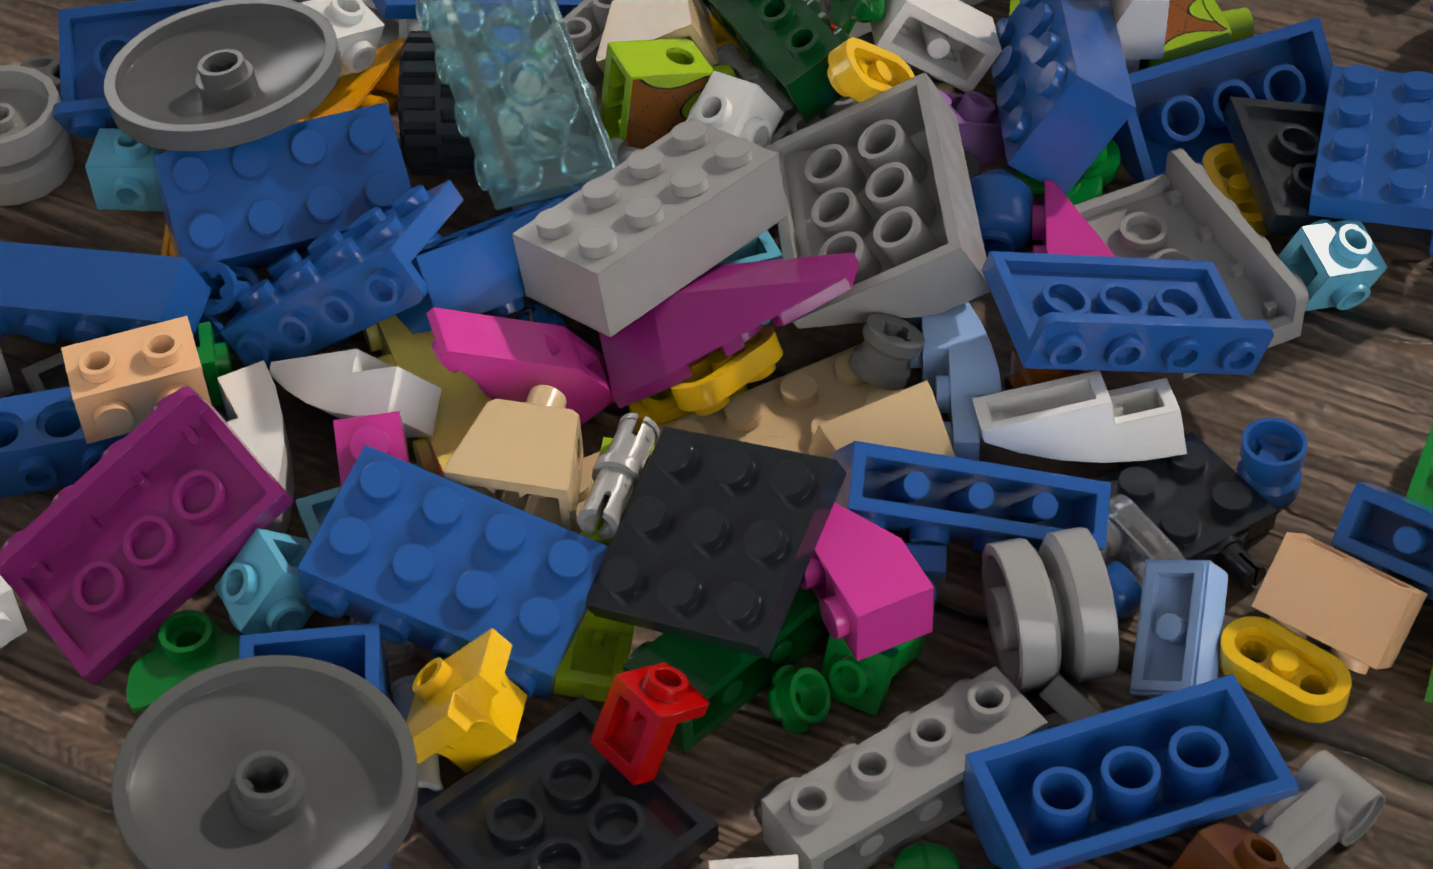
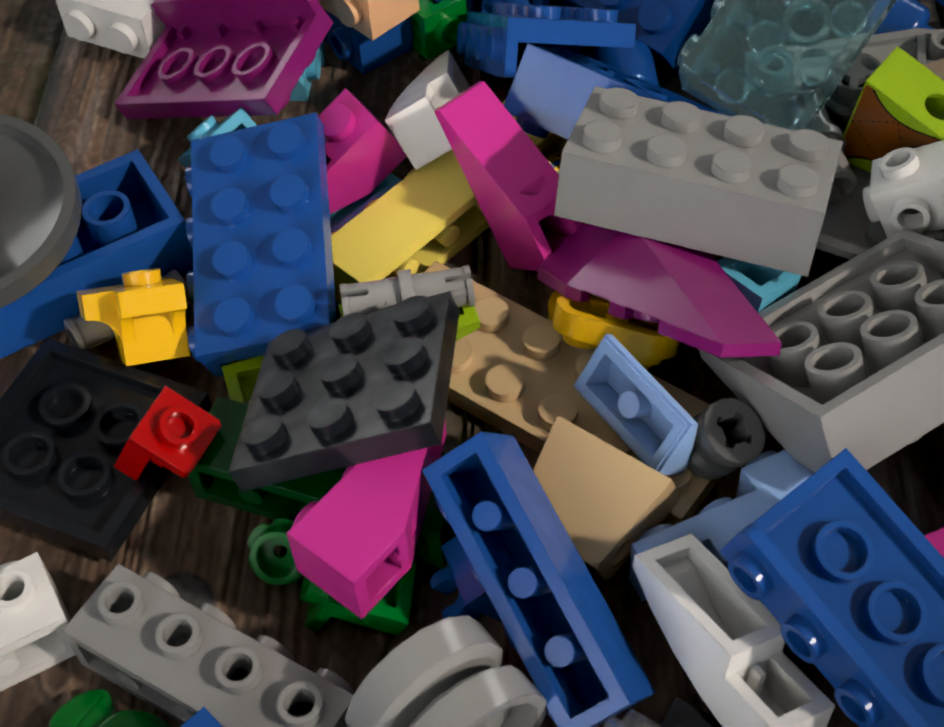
camera: 65 degrees right, 5 degrees up
(183, 647) = (159, 146): green plate -> none
(257, 419) = (373, 79): white slope -> none
(525, 455) = (399, 223): tan torso -> none
(830, 377) = (638, 408): none -> light blue slope

